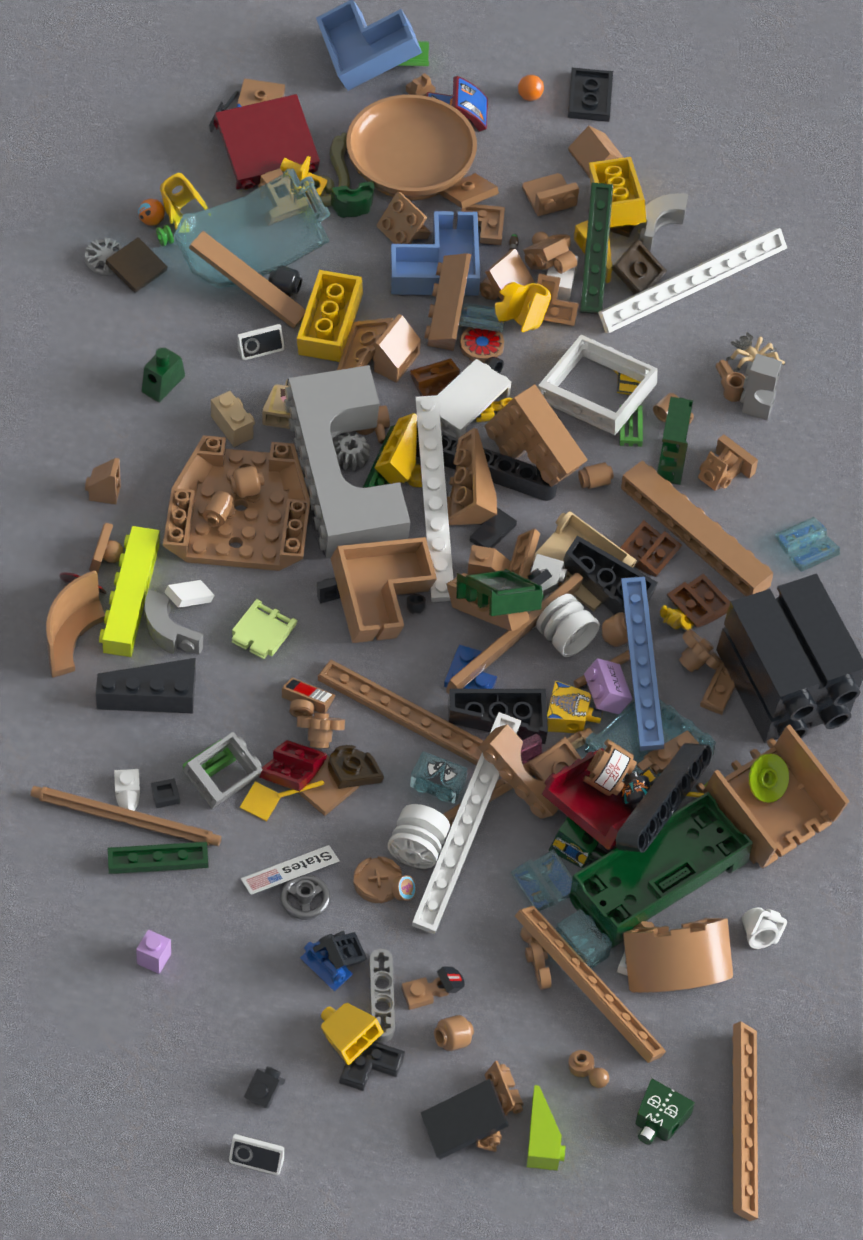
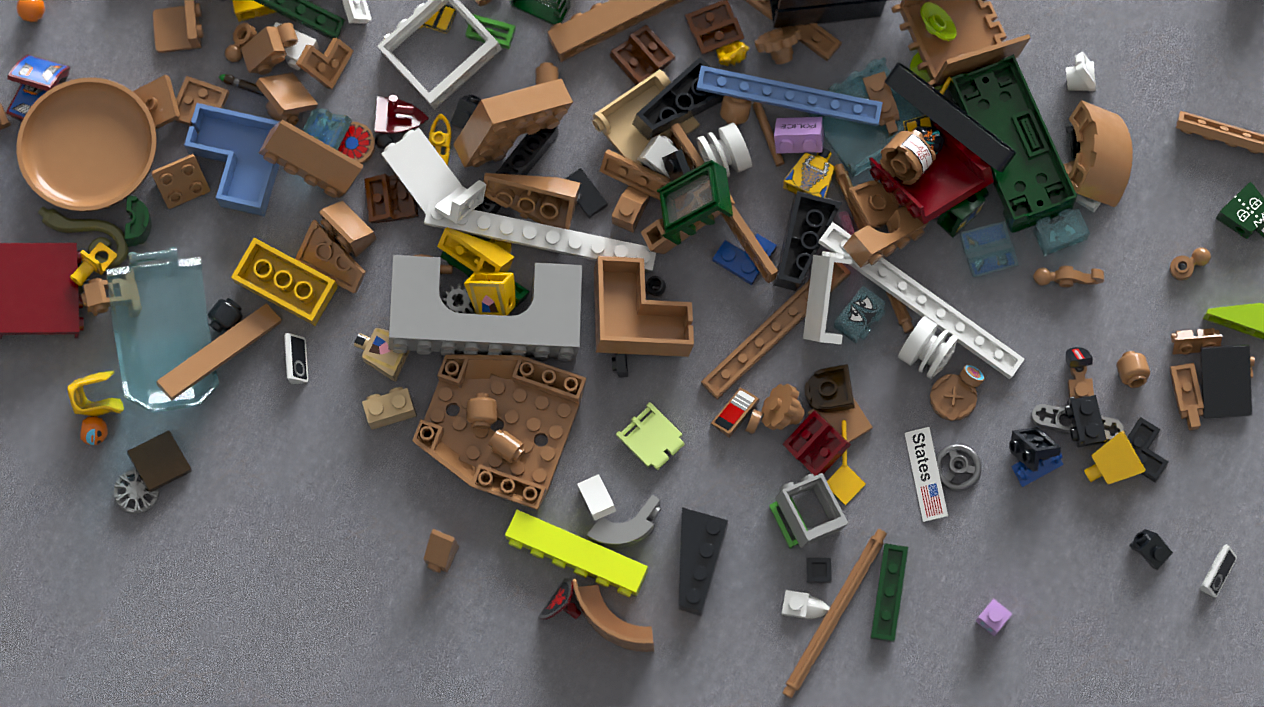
camera: 65 degrees left, 20 degrees up
(106, 549) = (519, 568): medium nougat tile -> none
(162, 374) = (316, 465): dark green torso -> none
(164, 235) = (126, 423): bright green bush -> none
(363, 464) = (491, 292): none -> yellow torso
(383, 992) = (1086, 421): none -> black bracket
(403, 733) = (819, 298): none -> white panel
(439, 1090) = (1187, 394): none -> medium nougat hinge
(443, 419) = (462, 201): none -> white panel
(517, 301) = (326, 96): yellow piece -> none
(519, 367) = (397, 115): none -> dark red shield
(590, 984) = (1109, 238): medium nougat tile -> none

